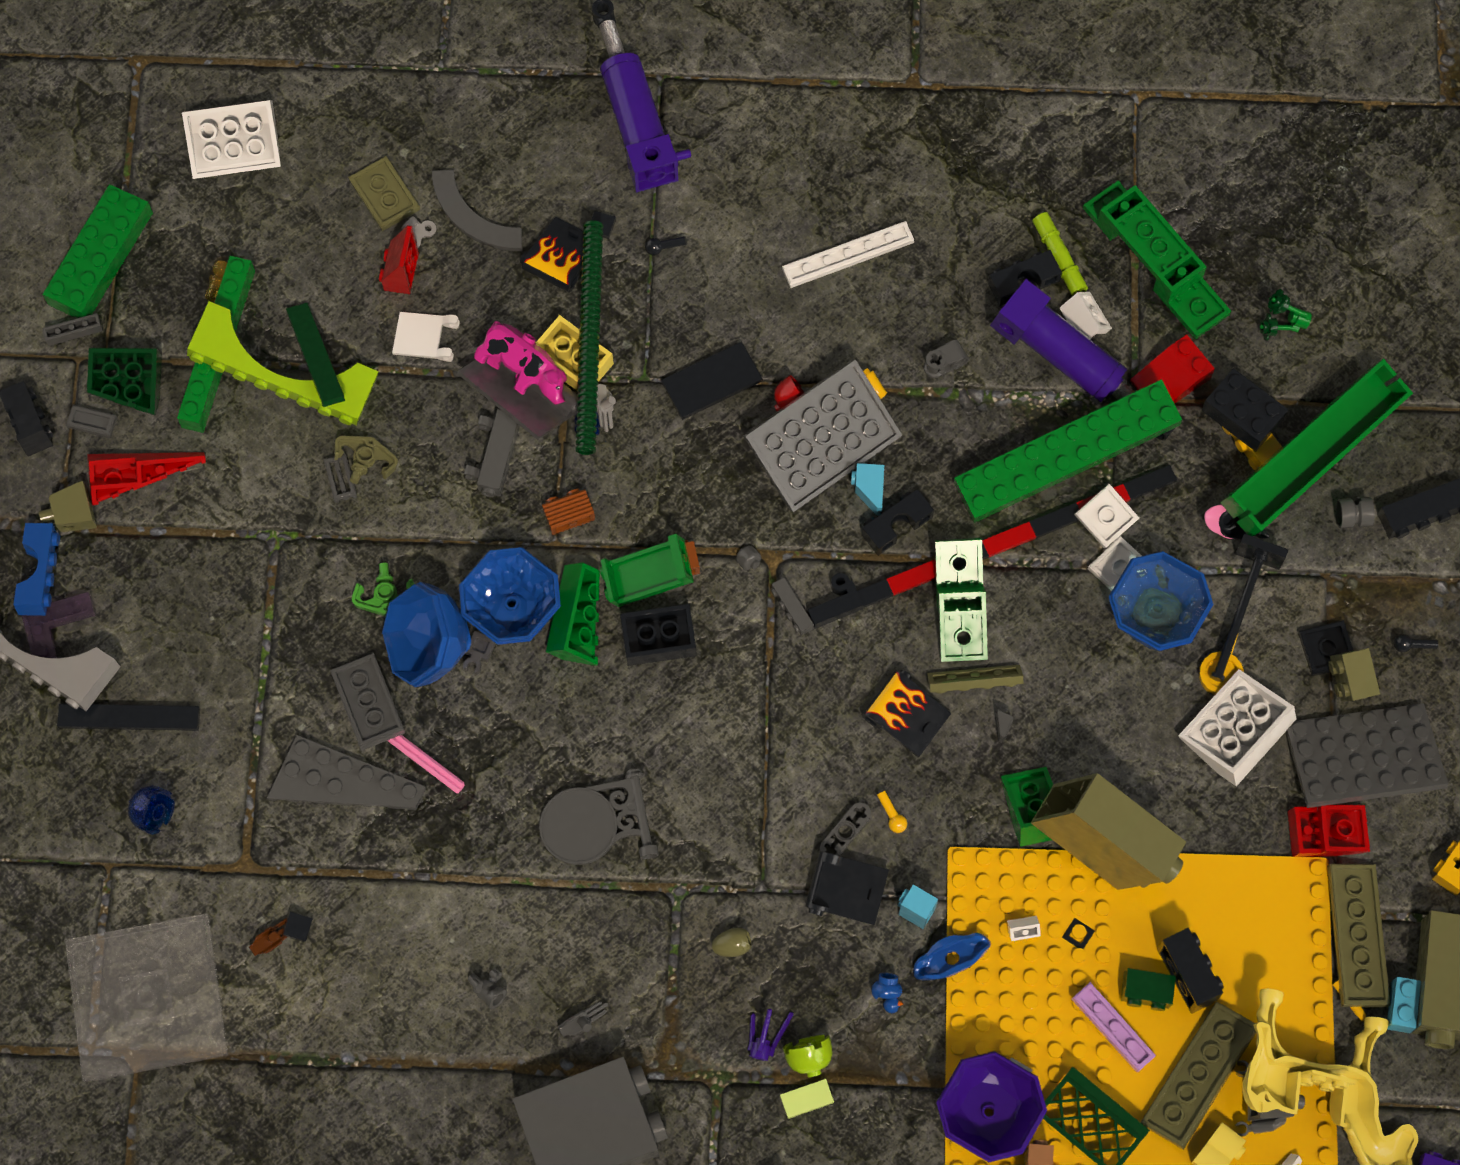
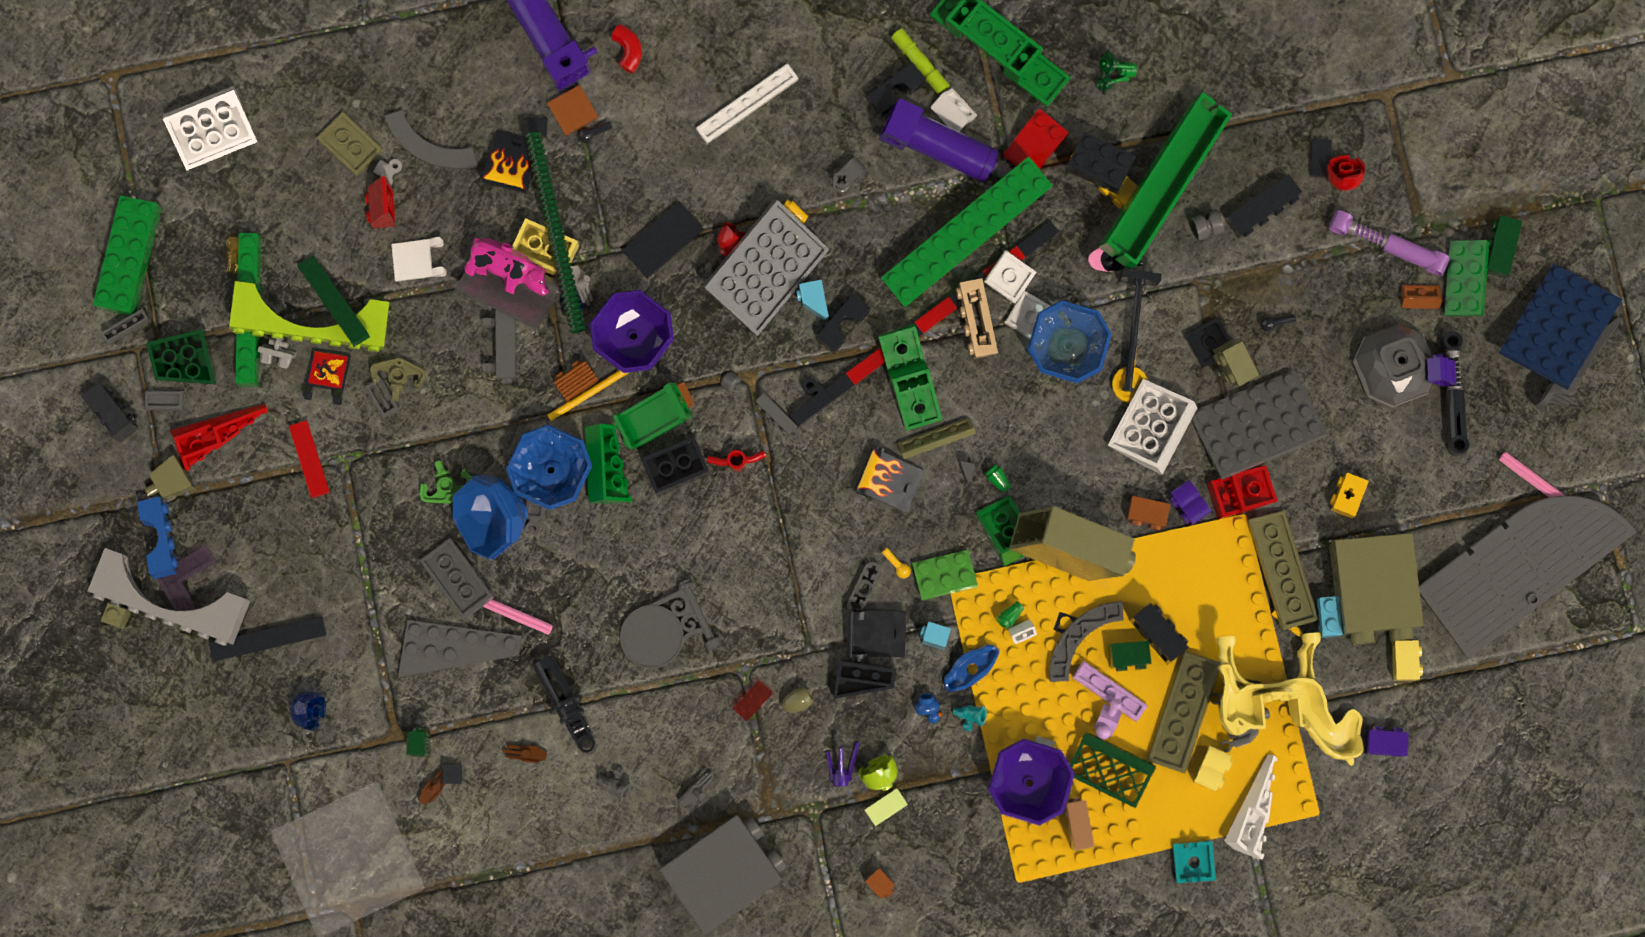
camera: 15 degrees left, 10 degrees up
(237, 526) = (309, 459): none -> red tile
(242, 405) = (268, 351): none -> light grey hips
(268, 878) = (418, 743): none -> dark green brick
(286, 434) = (327, 371): none -> flag
(394, 926) = (528, 753): none -> reddish brown piece
(456, 882) = (568, 710): none -> black piece
(579, 530) = (585, 395): none -> yellow piece
(644, 451) = (627, 315): none -> dark purple rock
(646, 215) = (572, 110): none -> dark orange tile
(678, 931) = (752, 701): none -> clear red tile
(731, 159) = (631, 46): none -> red cylinder
(732, 638) = (727, 461): none -> red piece
(816, 935) = (862, 678): none -> black wedge
(938, 1012) = (971, 714): none -> teal piece
(946, 839) = (945, 575): none -> bright green plate
(1012, 905) = (1009, 615): none -> green cone
(1037, 742) = (998, 478): none -> green cone
(1057, 516) = (970, 328): none -> tan brick
(1090, 946) = (1076, 633): none -> dark grey tile
(1104, 1059) = (1108, 719): none -> lavender piece
(1209, 826) = (1148, 513): none -> dark orange brick
(1262, 827) = (1189, 503): none -> dark purple brick

